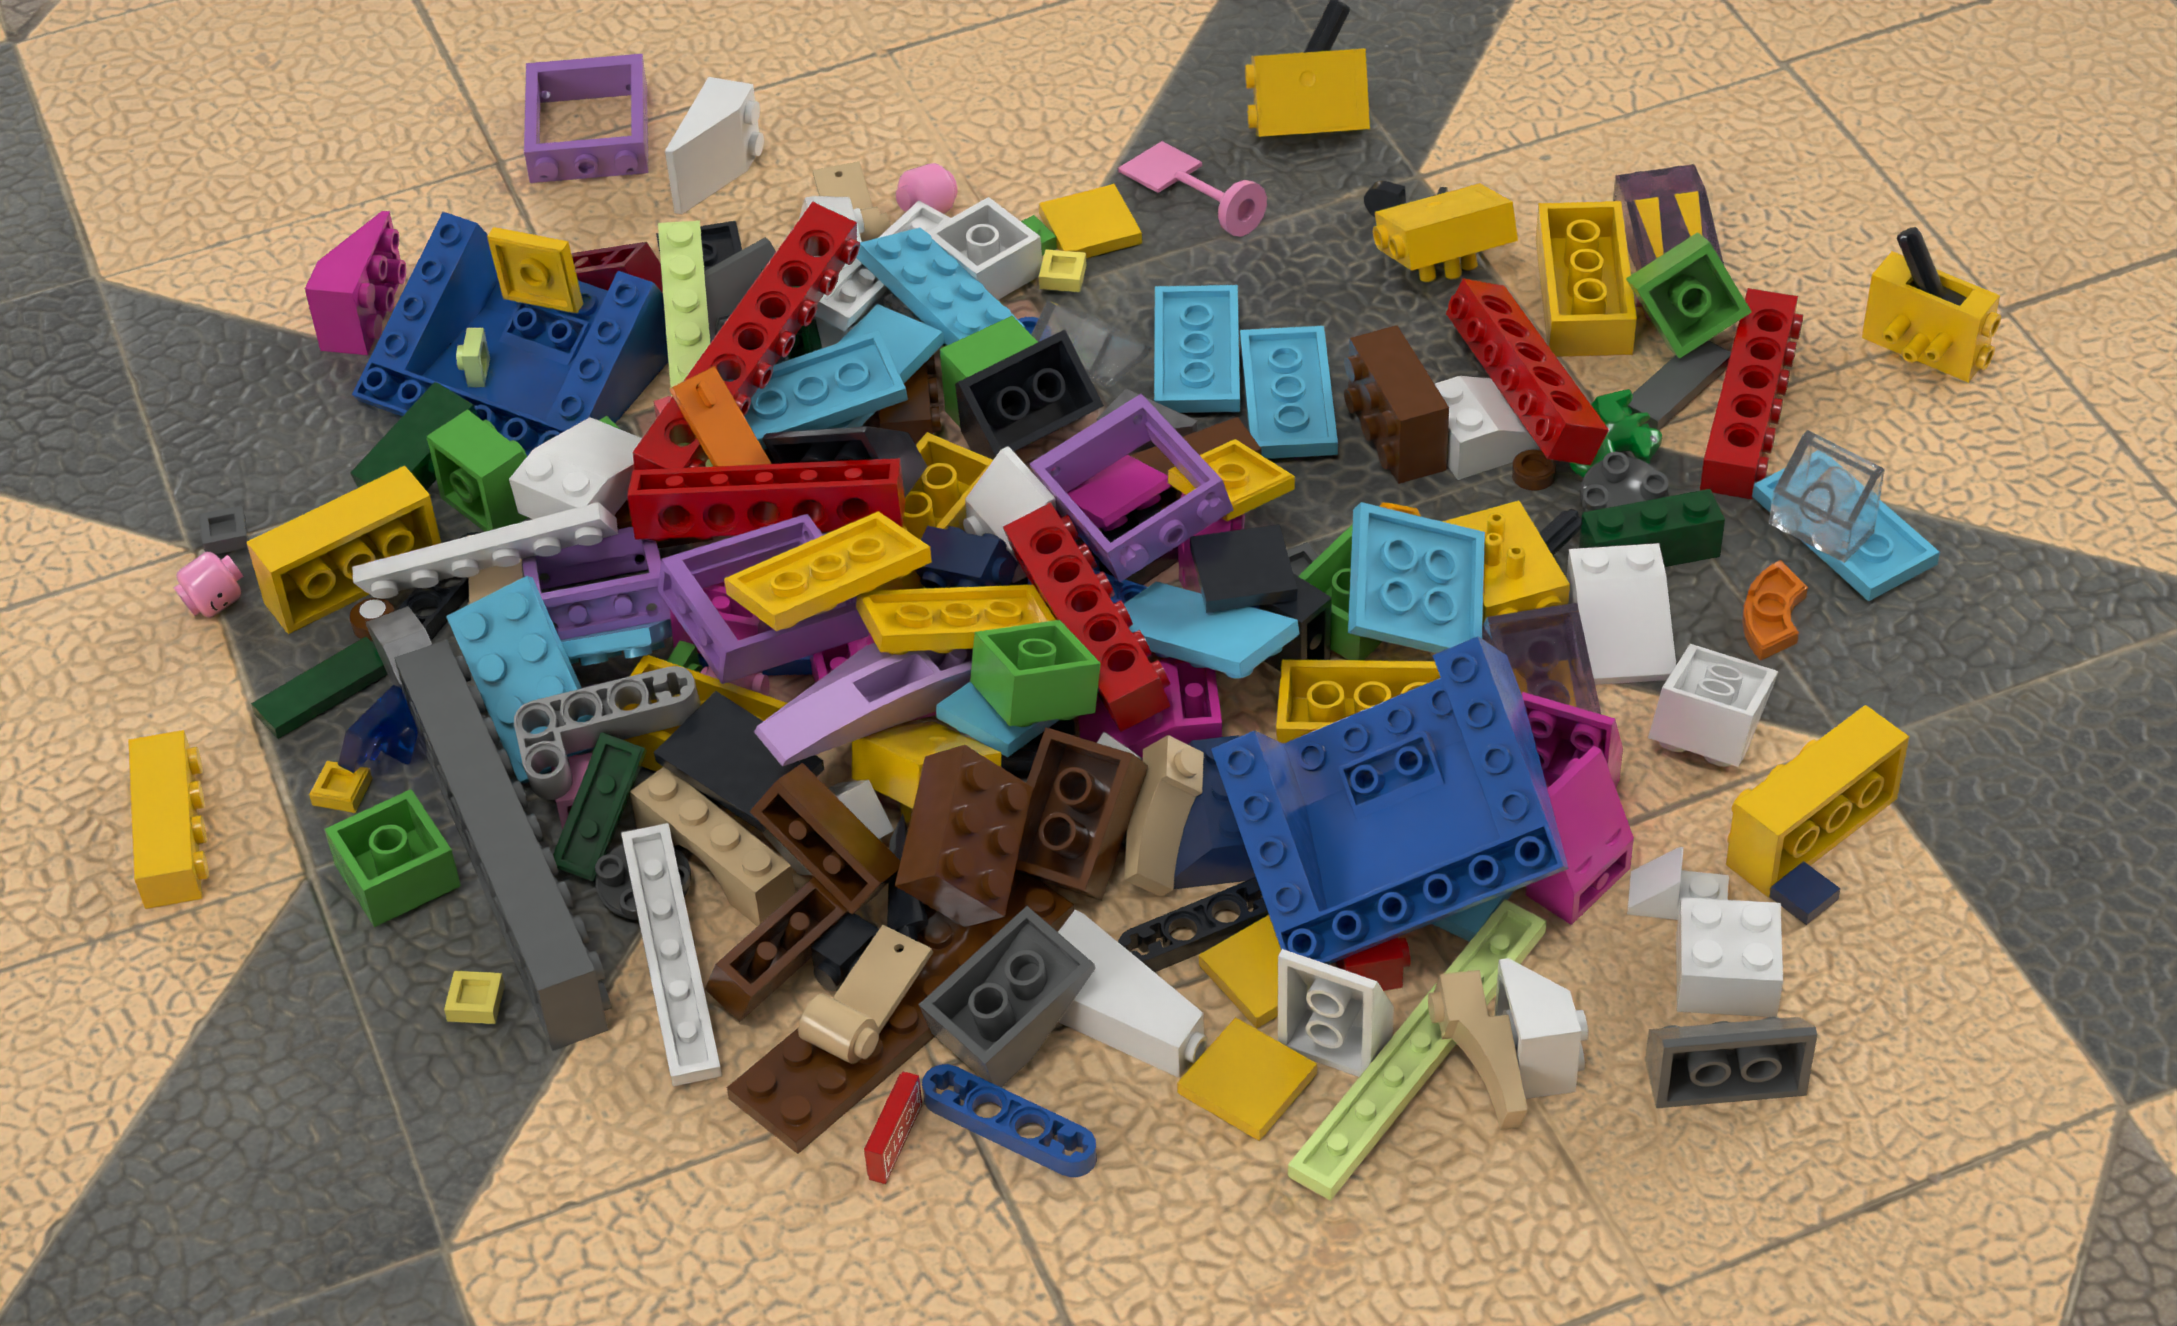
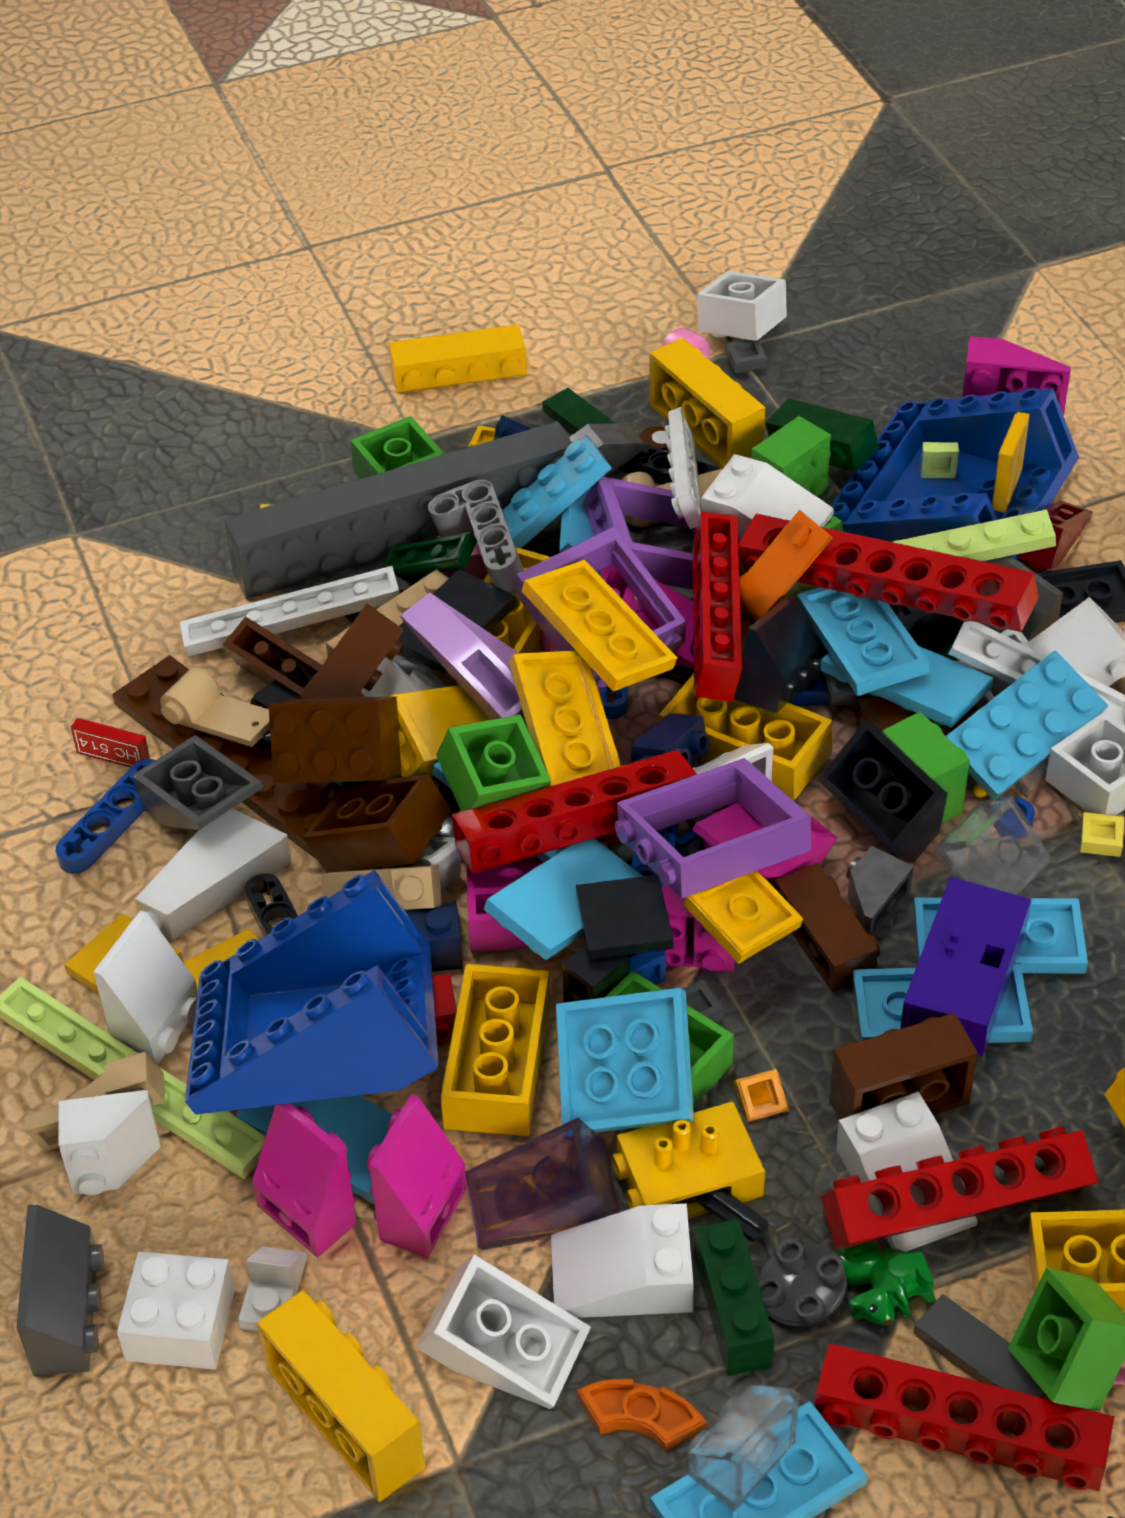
camera: 90 degrees right, 0 degrees up
(146, 516) = (741, 305): none -> white brick
(1261, 350) = (968, 958): none -> dark purple brick
(1805, 892) = (259, 1395): dark blue tile -> none

